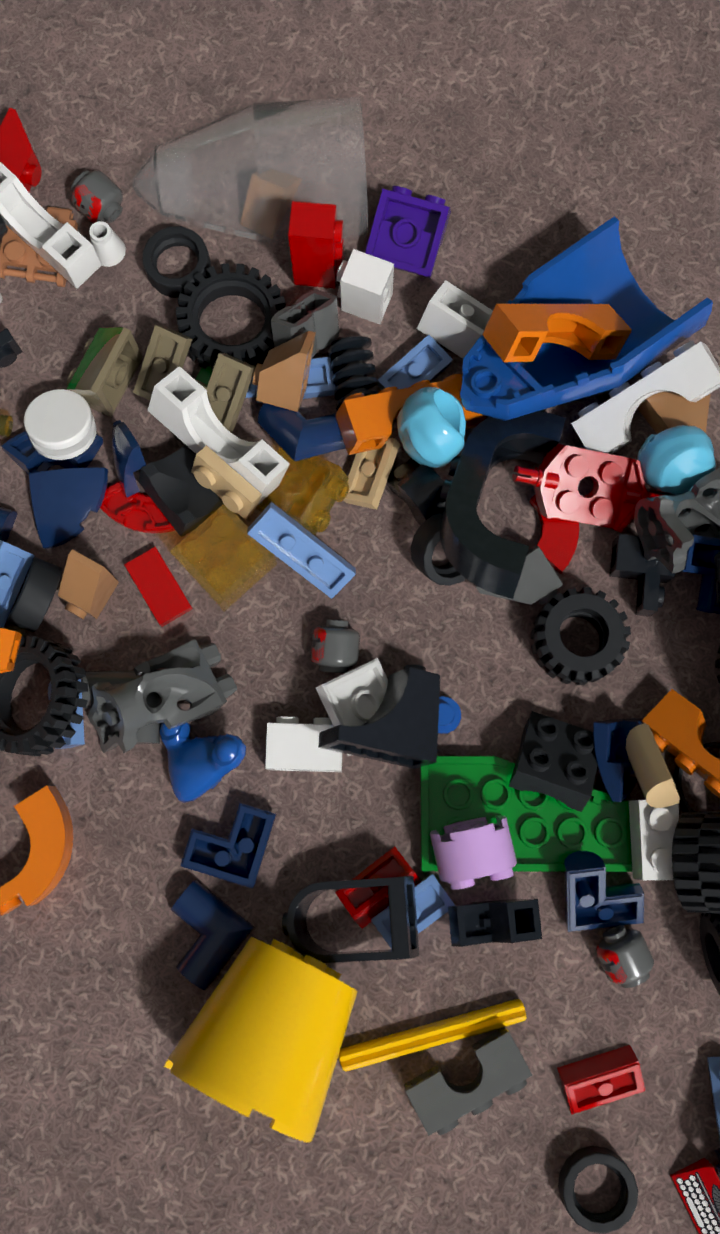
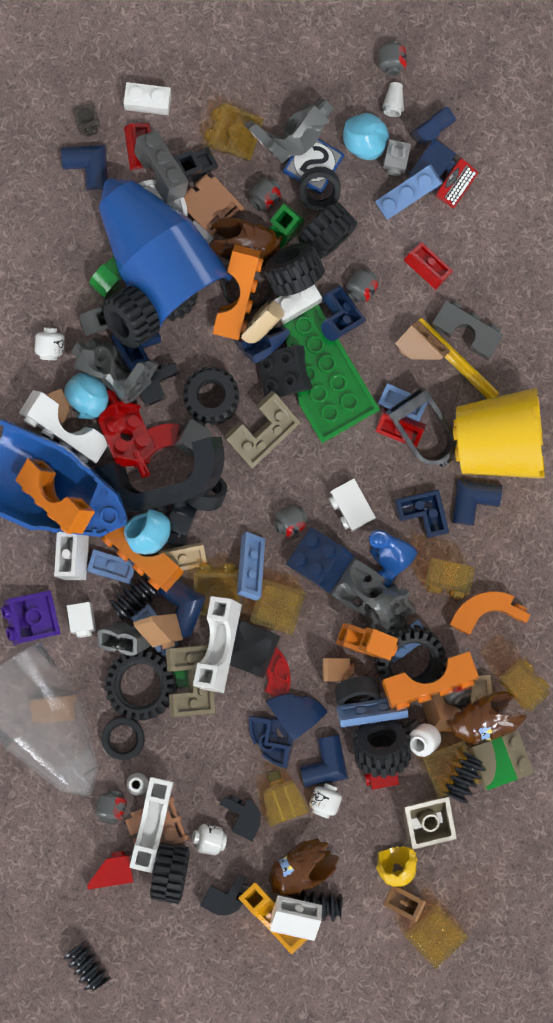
camera: 125 degrees left, 5 degrees up
(60, 424) = (256, 740): white head -> none
(69, 647) = (367, 641): none -> orange arch
(106, 369) = (211, 737): dark tan slope -> none
(111, 823) = (448, 577): none -> clear yellow brick
(126, 457) = (253, 692): dark blue brick -> none
(158, 586) = (312, 635): red tile -> none
(223, 480) = (238, 633): tan plate -> none
(251, 651) = (320, 560): none -> dark blue brick
(315, 244) = (76, 656): red brick -> none
(354, 695) = (314, 487): white tile -> none
(402, 727) = (314, 460): black arch -> none
(448, 715) = (293, 444): blue plate -> none
(468, 658) = (279, 424): none -> dark tan plate
(474, 851) = (355, 387): lavender brick -> none
(485, 994) = (421, 344): none -> medium nougat slope
(495, 922) = (383, 359): black brick -> none
(626, 1204) = (497, 240): black tyre -> none

